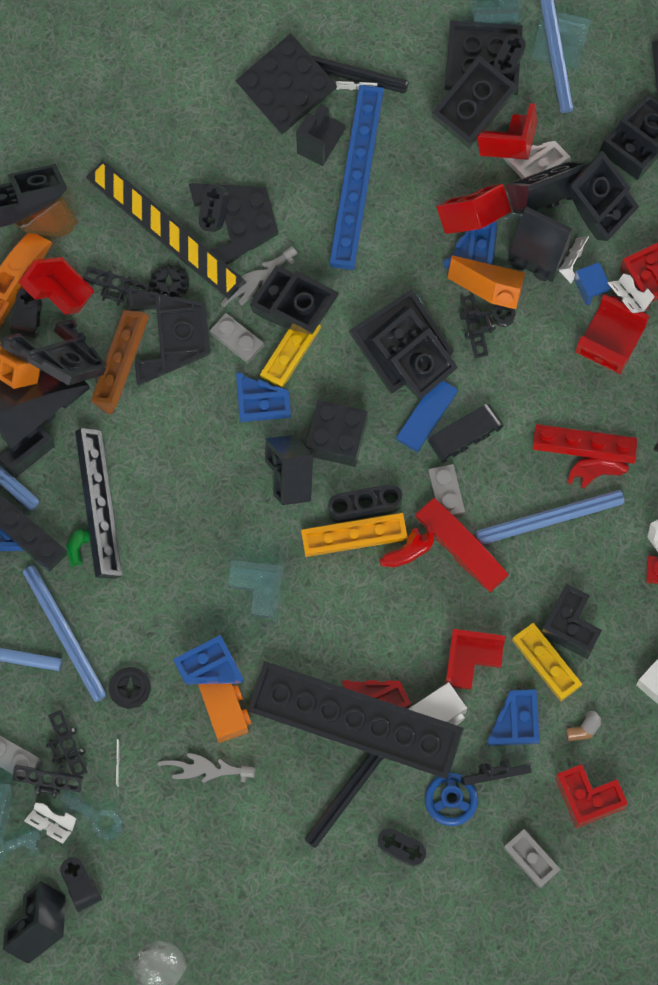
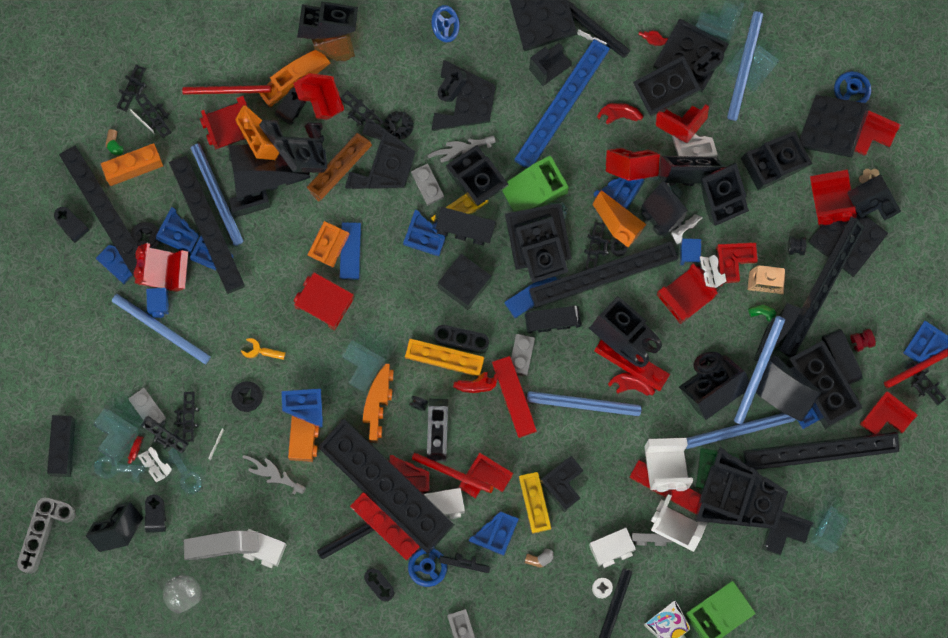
camera: 20 degrees right, 5 degrees up
(17, 823) = (135, 449): none -> red piece
(64, 633) = (220, 343): medium blue axle -> none
(73, 546) = (253, 281): green arm -> none
(98, 503) = (281, 260): black plate -> none
(126, 623) = (264, 351): none -> light orange piece
(148, 459) = (328, 244): none -> orange plate
(165, 230) = (412, 86): tile -> none
(168, 143) = (442, 24): none -> blue piece
(173, 528) = (324, 300): none -> red panel
(178, 457) = (351, 252): none -> blue tile
(181, 883) = (221, 544): none -> light grey beam
(235, 866) = (269, 551): none -> white brick
(291, 468) = (421, 294): black panel -> none
(294, 615) = (378, 395): none -> orange slope
(305, 366) = (463, 225): none -> black brick
(347, 603) = (418, 403): none -> black bush
(371, 283) = (536, 186): none -> bright green slope
(375, 770) = (384, 526): none -> red plate
(386, 625) = (437, 429): none -> black slope
(428, 156) = (619, 110): none -> red piece
(429, 56) = (653, 38): none -> red piece
(434, 667) = (452, 472): none -> red axle
(500, 354) = (603, 274): none -> black plate
(562, 409) = (626, 332): none -> black brick
(585, 803) = (517, 612): red panel -> none

